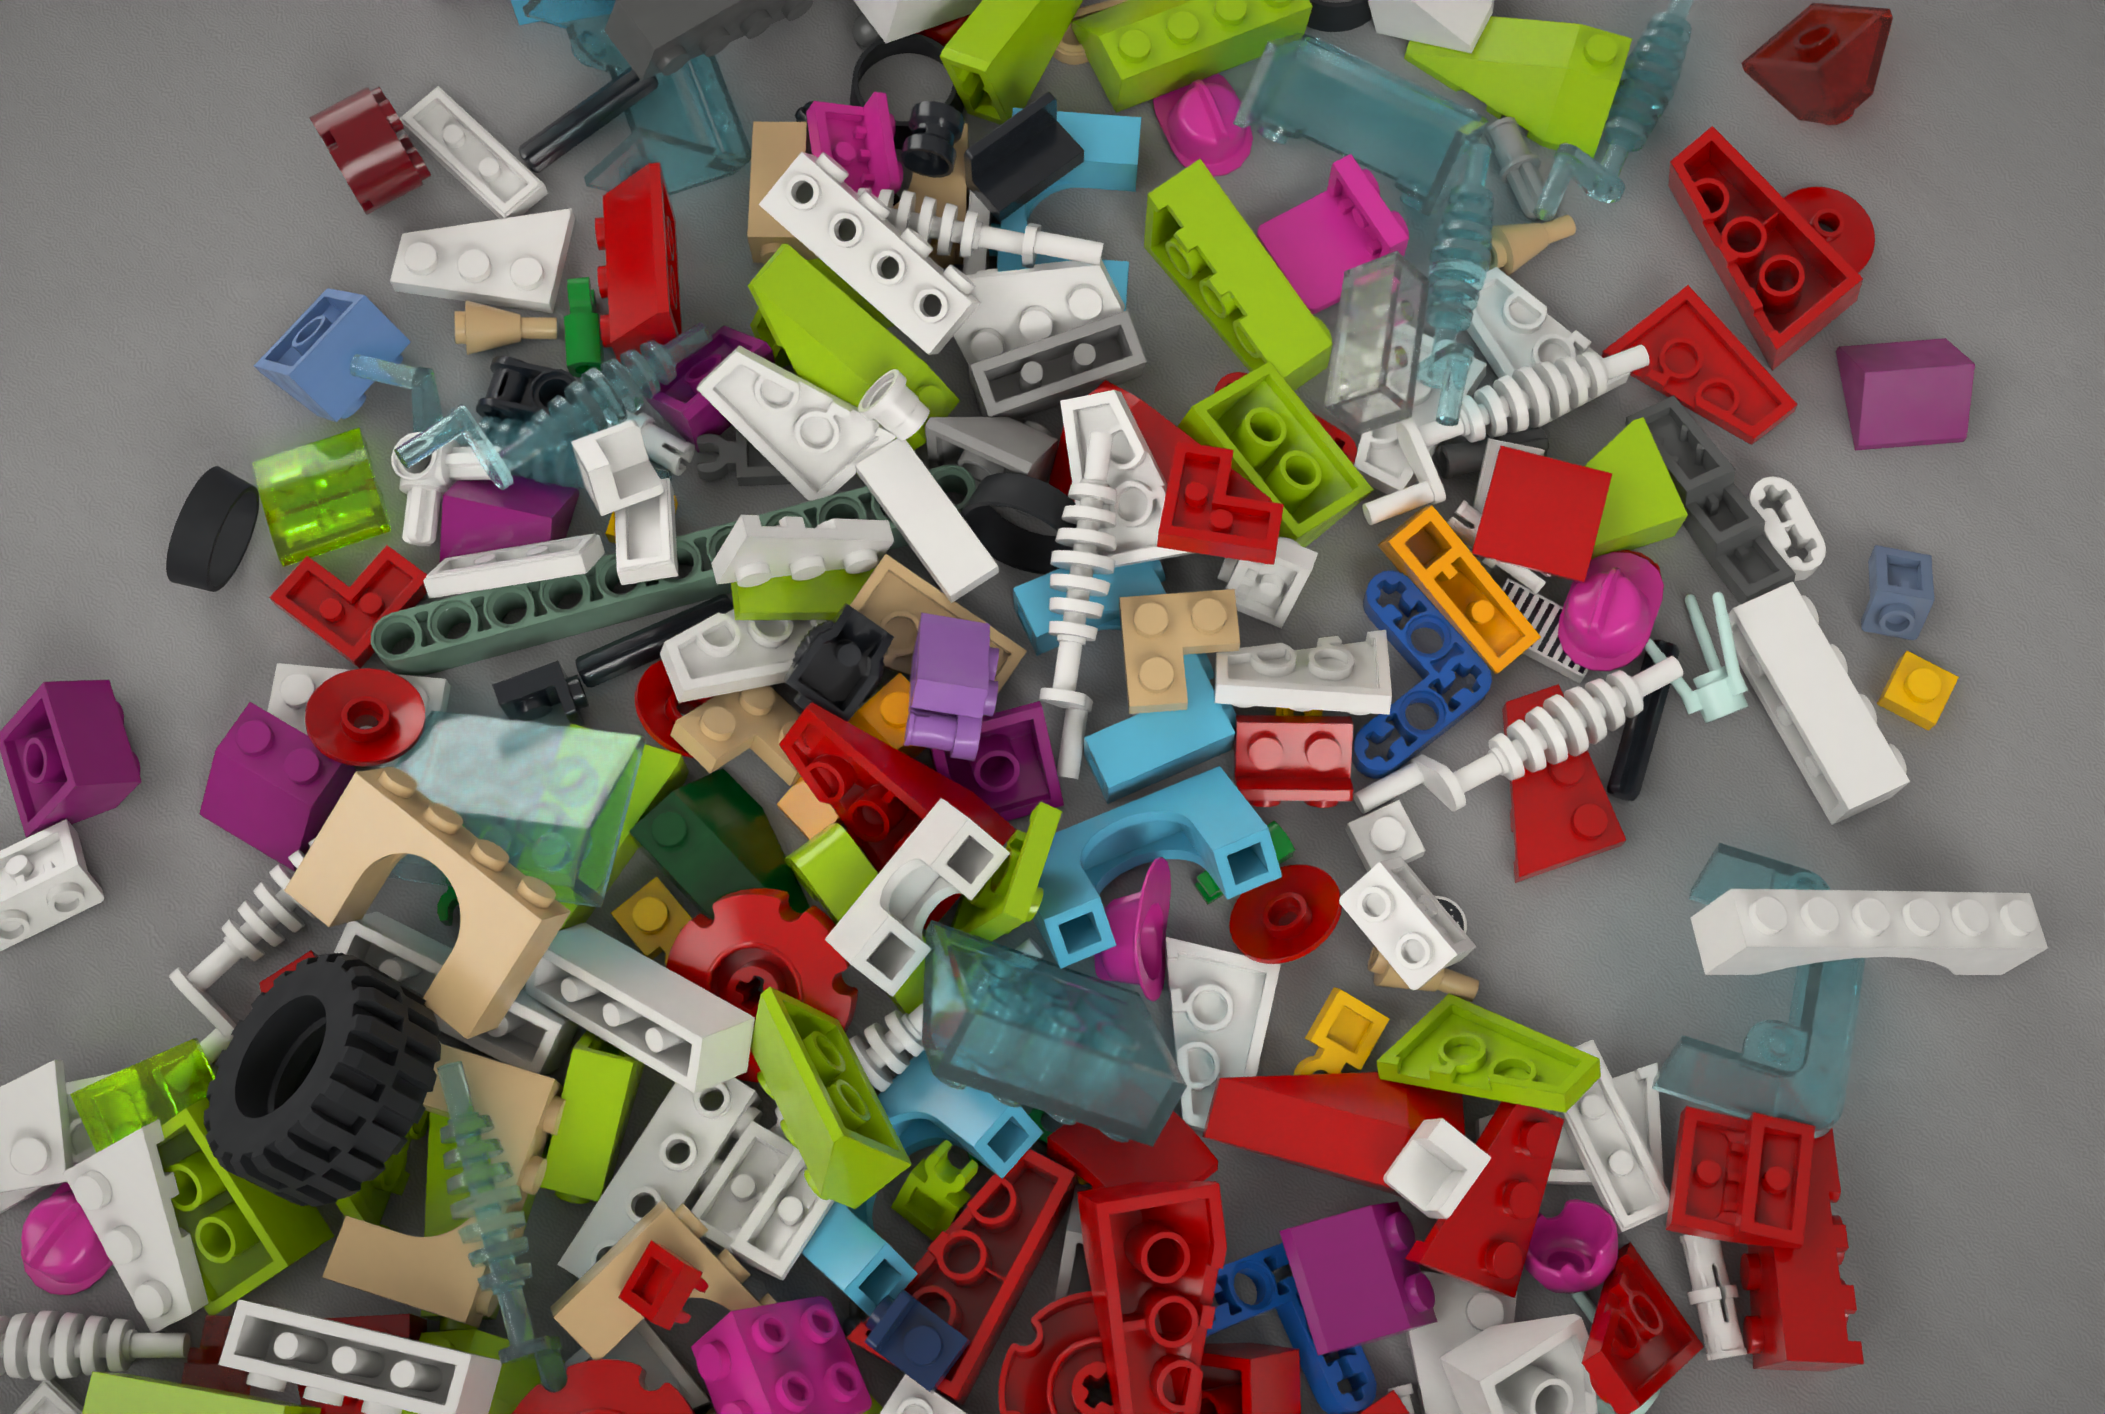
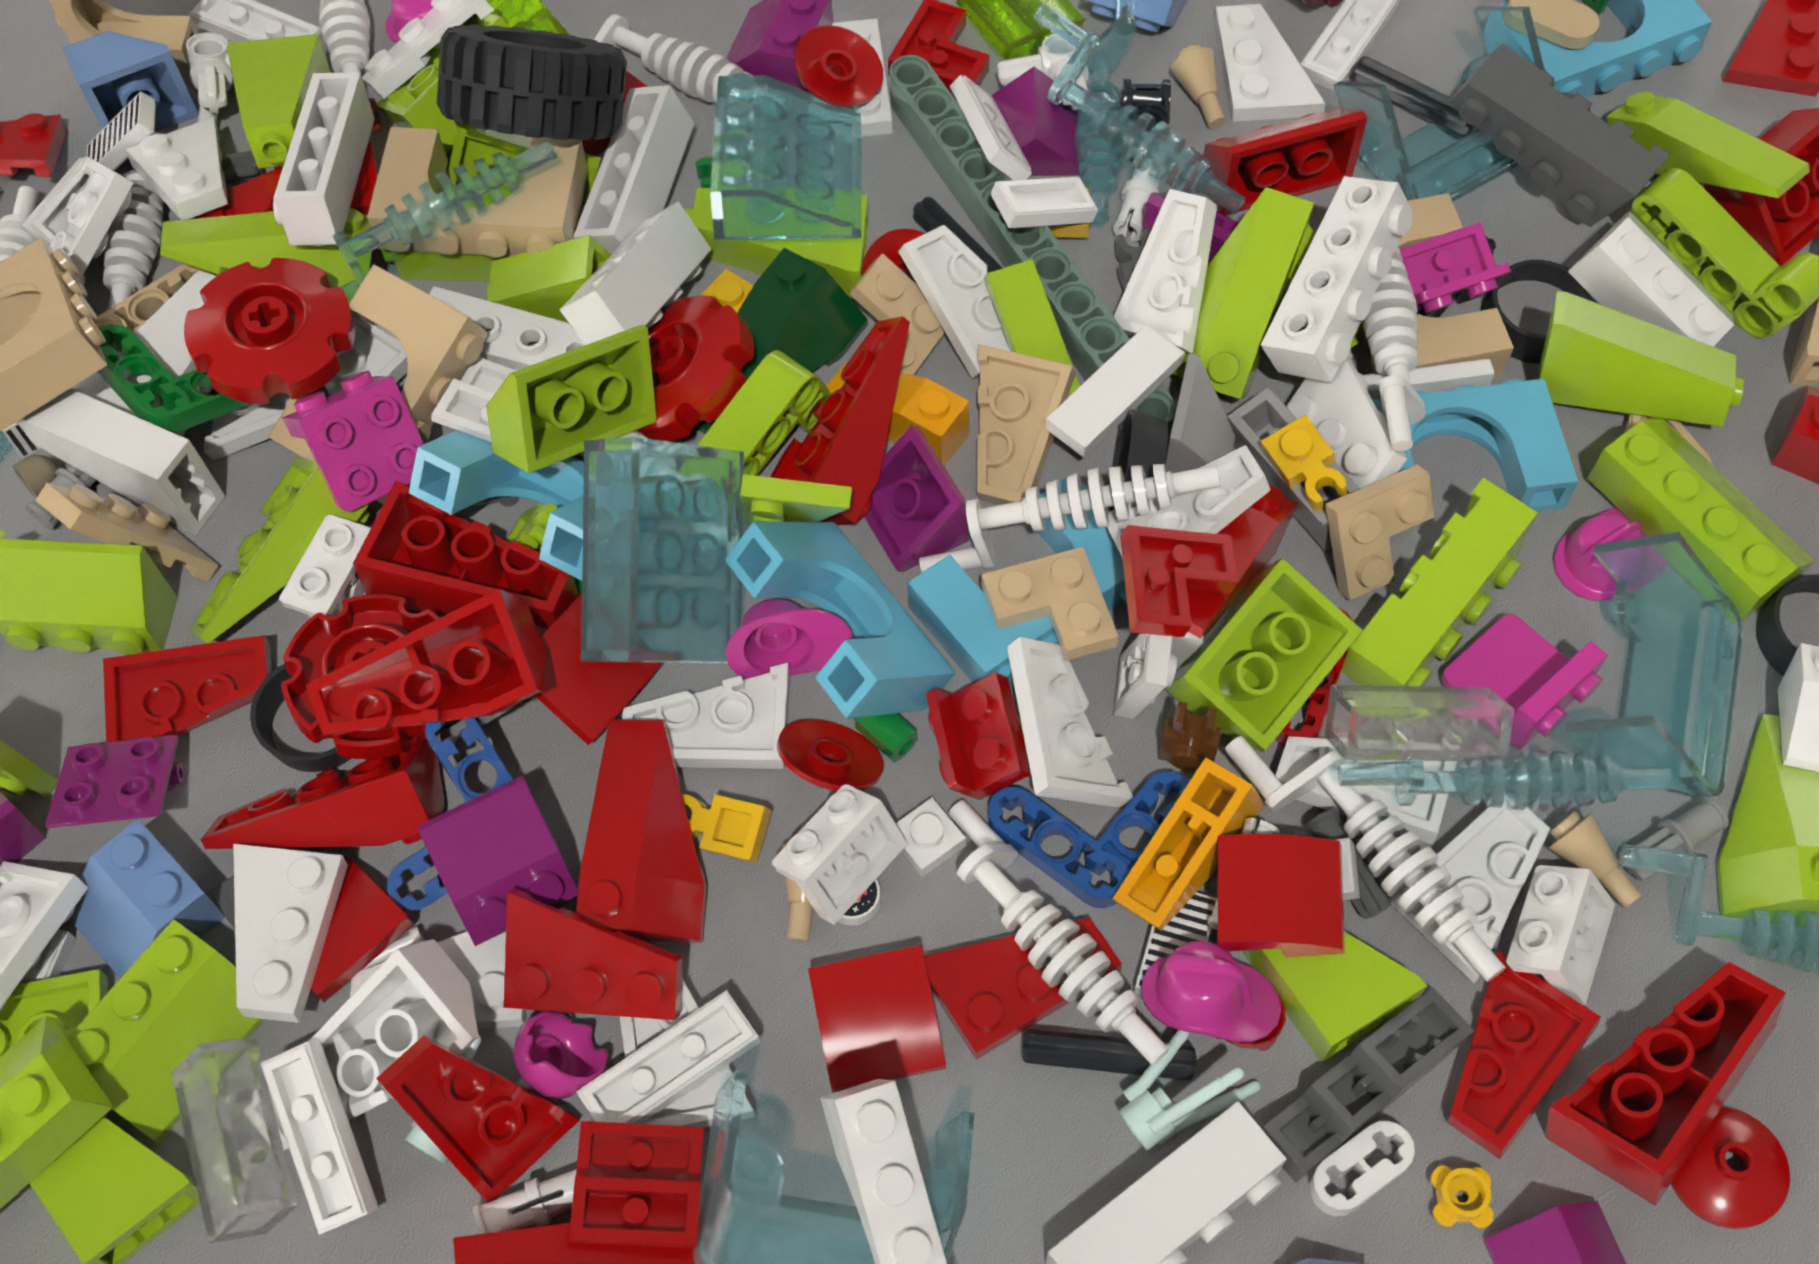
camera: 80 degrees right, 10 degrees down
(503, 913) = (724, 74): tan arch -> none
(536, 691) = (895, 182): black bracket -> none
(582, 328) = (1214, 130): green bar -> none
(616, 467) = (1088, 162): white panel -> none
(662, 1286) = (402, 320): red tile -> none
(759, 552) = (1044, 282): white wing -> none
(839, 663) = (960, 351): black hand -> none
(887, 921) = (774, 431): white arch -> none
(894, 405) = (1201, 329): white piece -> none
(915, 1339) = (394, 518): dark blue bracket -> none
(934, 132) = (1480, 313): black wheel -> none
(951, 685) = (960, 426): medium lavender hinge -> none
(1021, 158) = (1490, 384): black panel -> none
(1068, 356) = (1303, 456): none -> yellow plate
(1152, 324) = (1366, 520): none -> tan plate
(1344, 558) = (1190, 738): none -> reddish brown plate
(1436, 1168) = (596, 890): white panel -> none
(1489, 1057) = (718, 939): lime wing -> none
(1574, 927) = (877, 1018): none -> red slope
(1595, 292) = (1562, 929): none -> white bracket
(1824, 438) = (1474, 1184): none -> yellow plate

